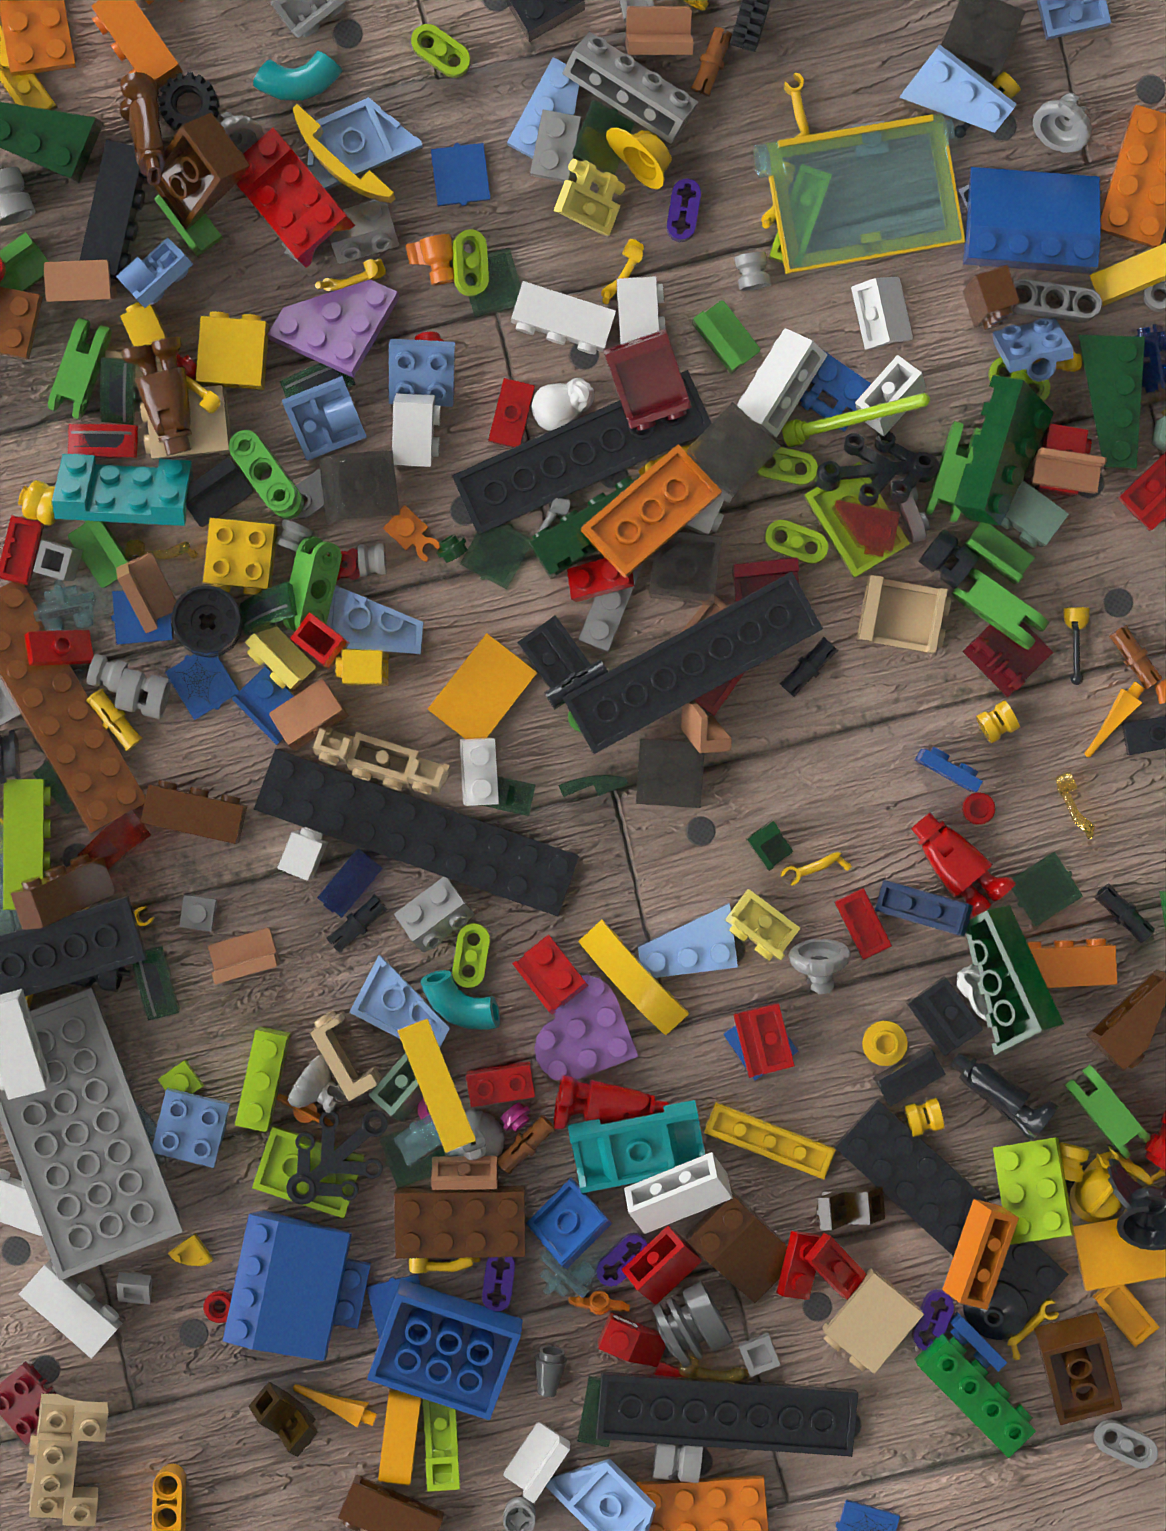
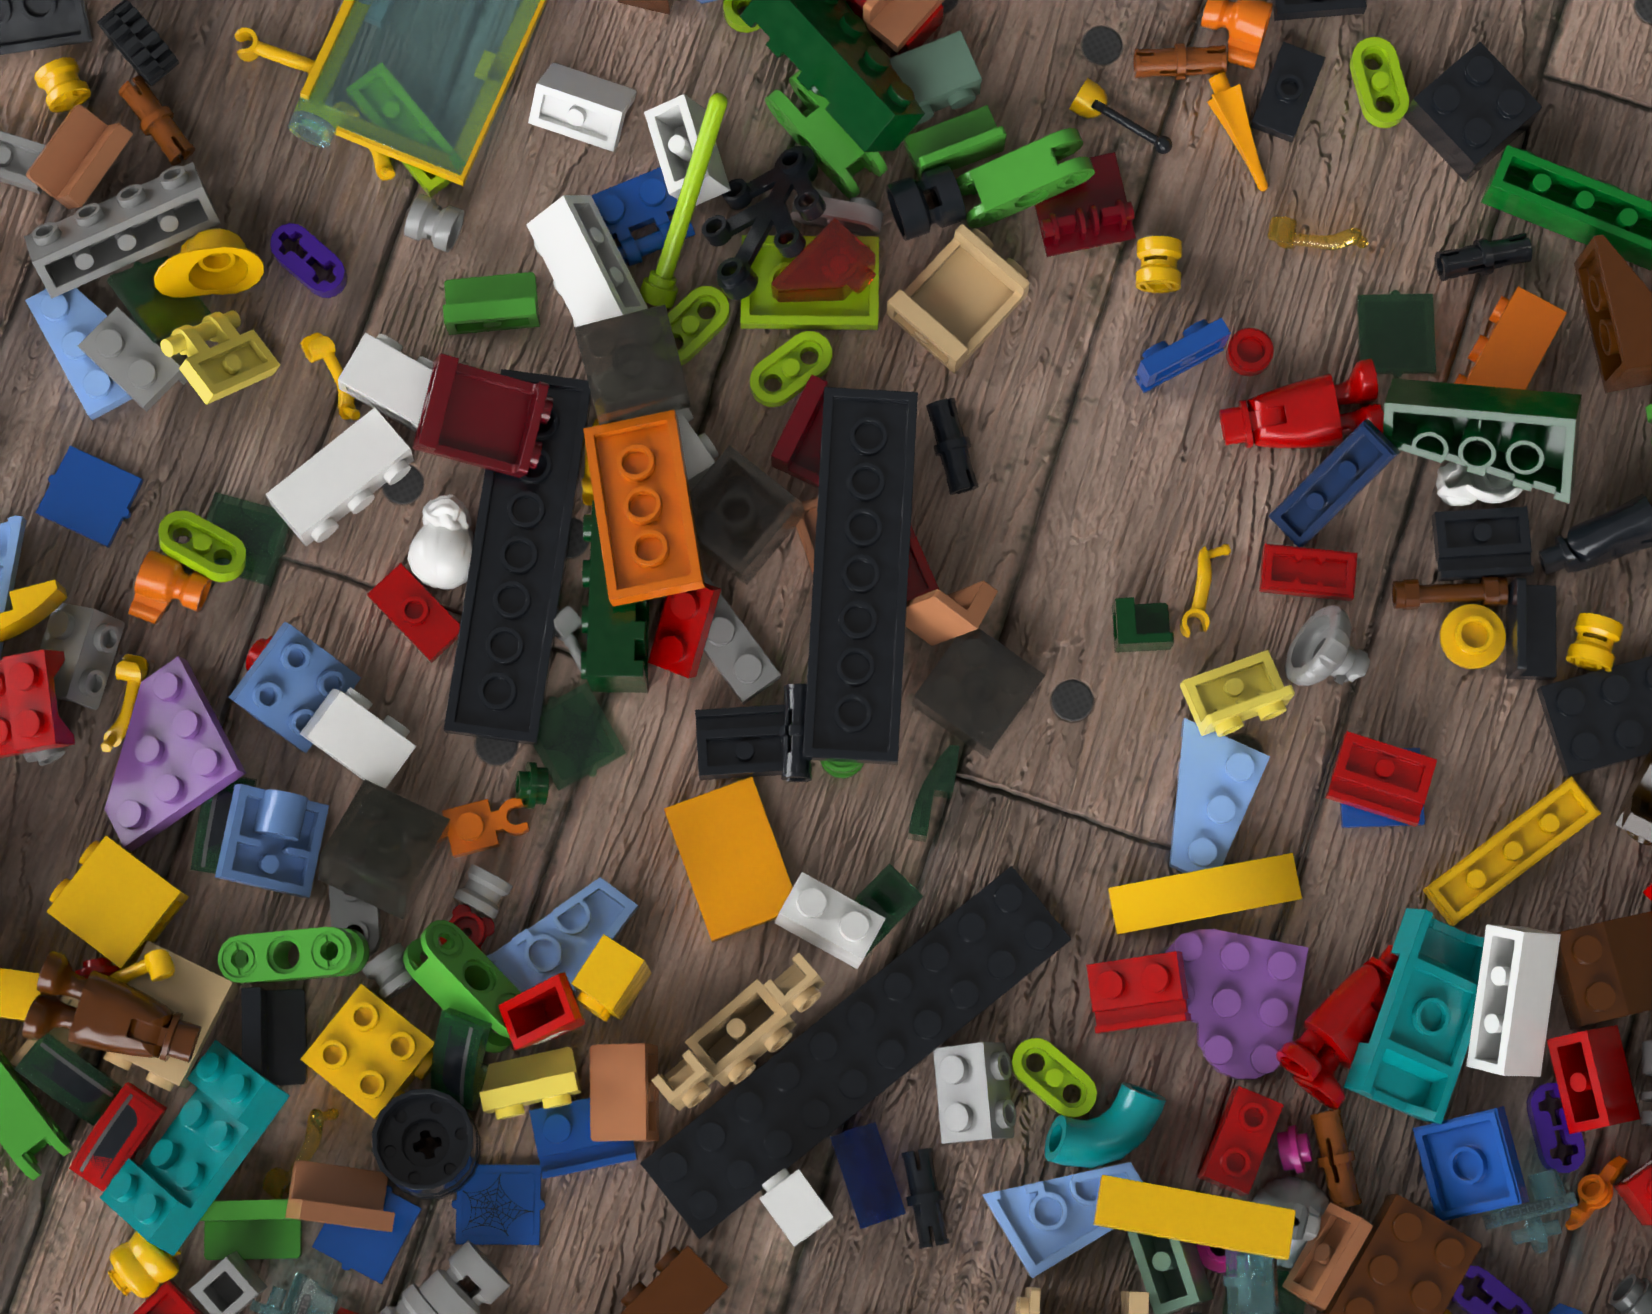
camera: 55 degrees left, 10 degrees down
(917, 1036) = (1490, 593): none -> reddish brown bar

